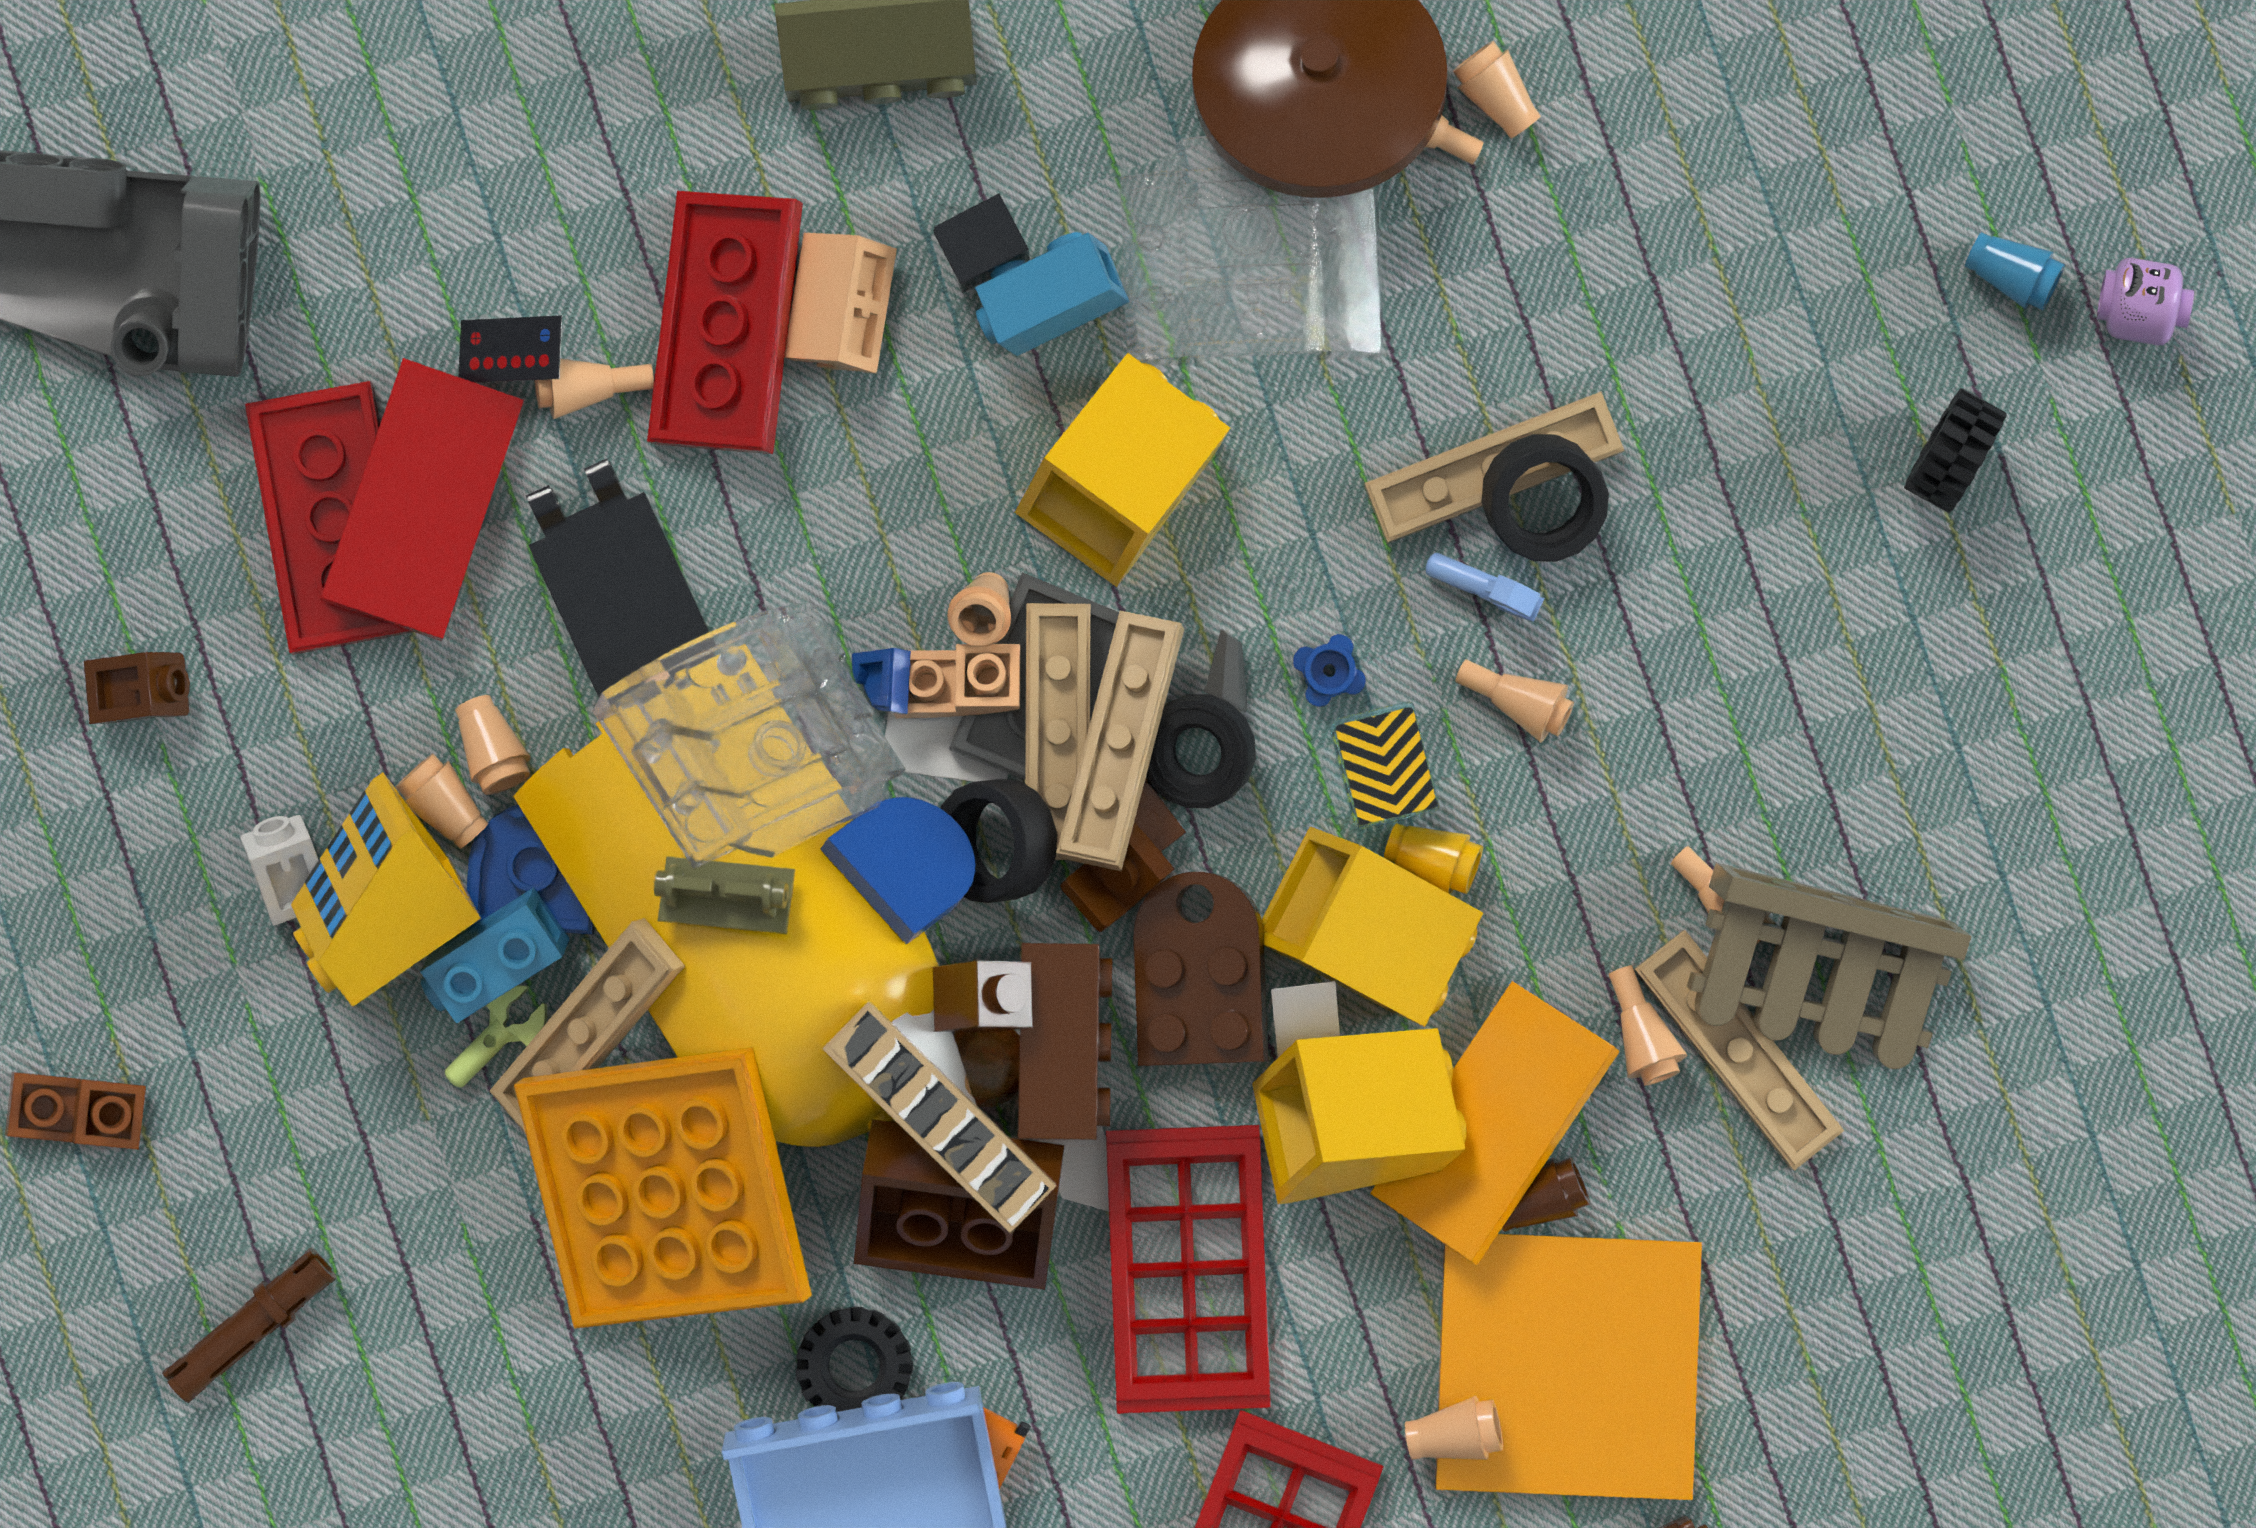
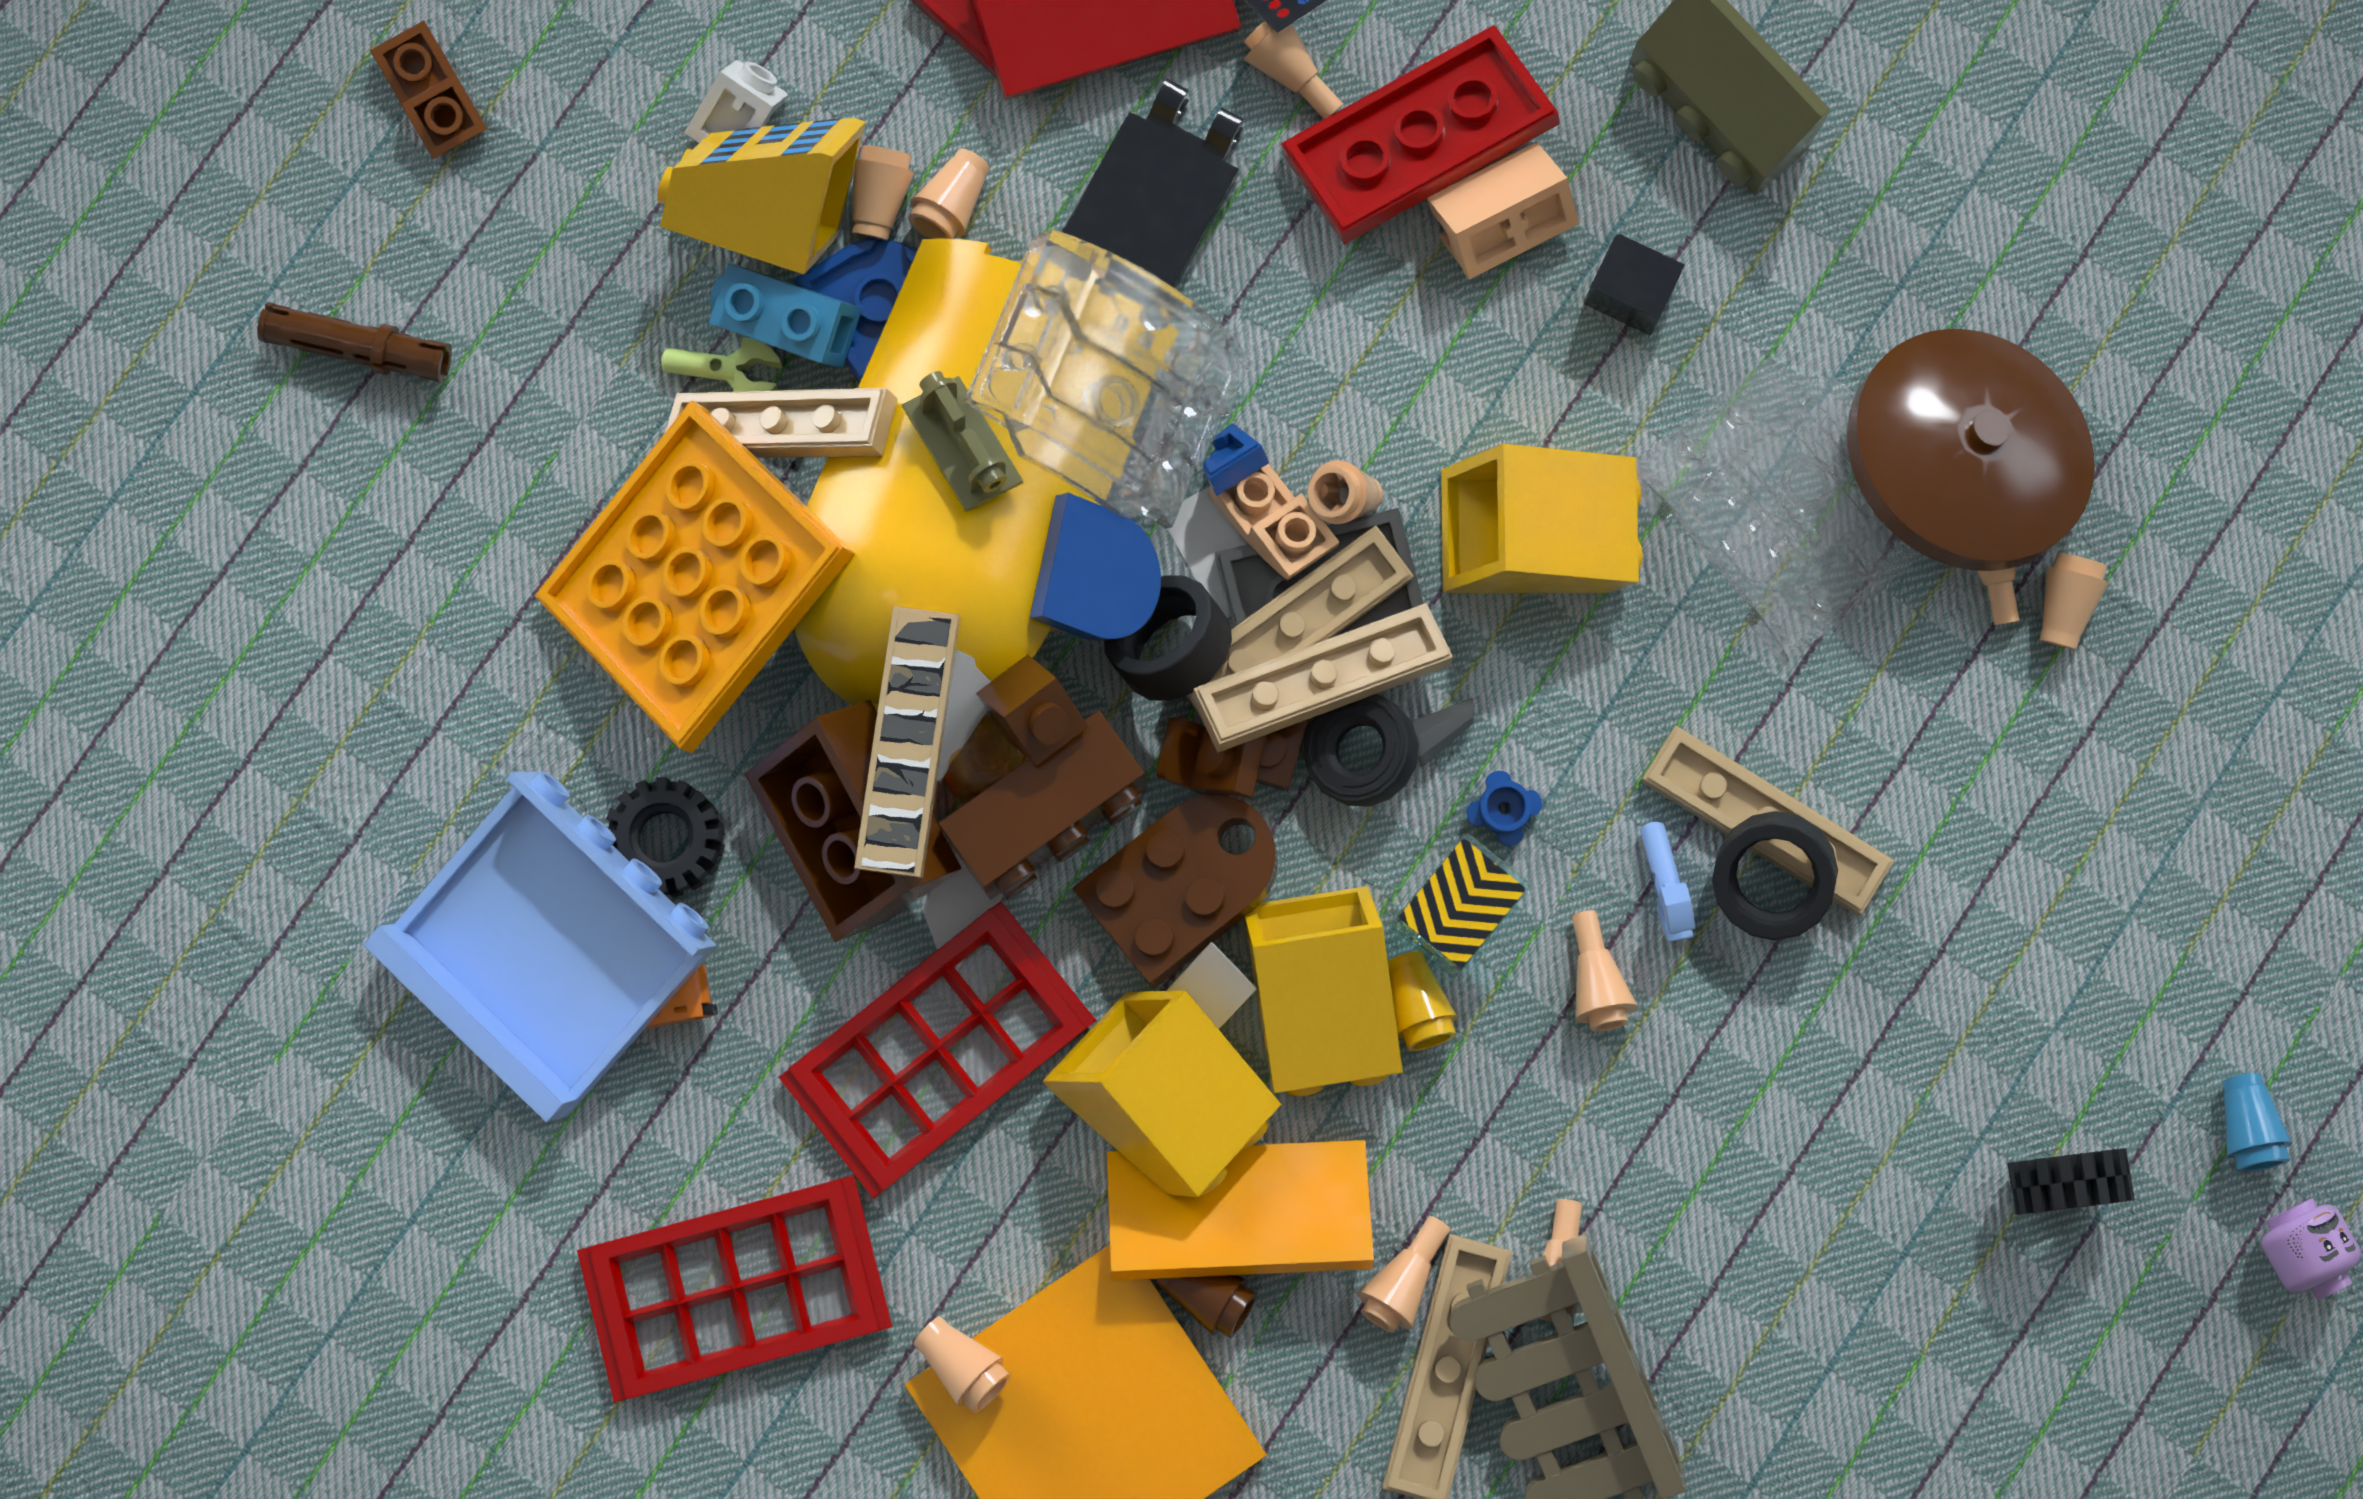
camera: 55 degrees right, 5 degrees down
(1049, 294) = (1635, 364): dark azure brick -> none

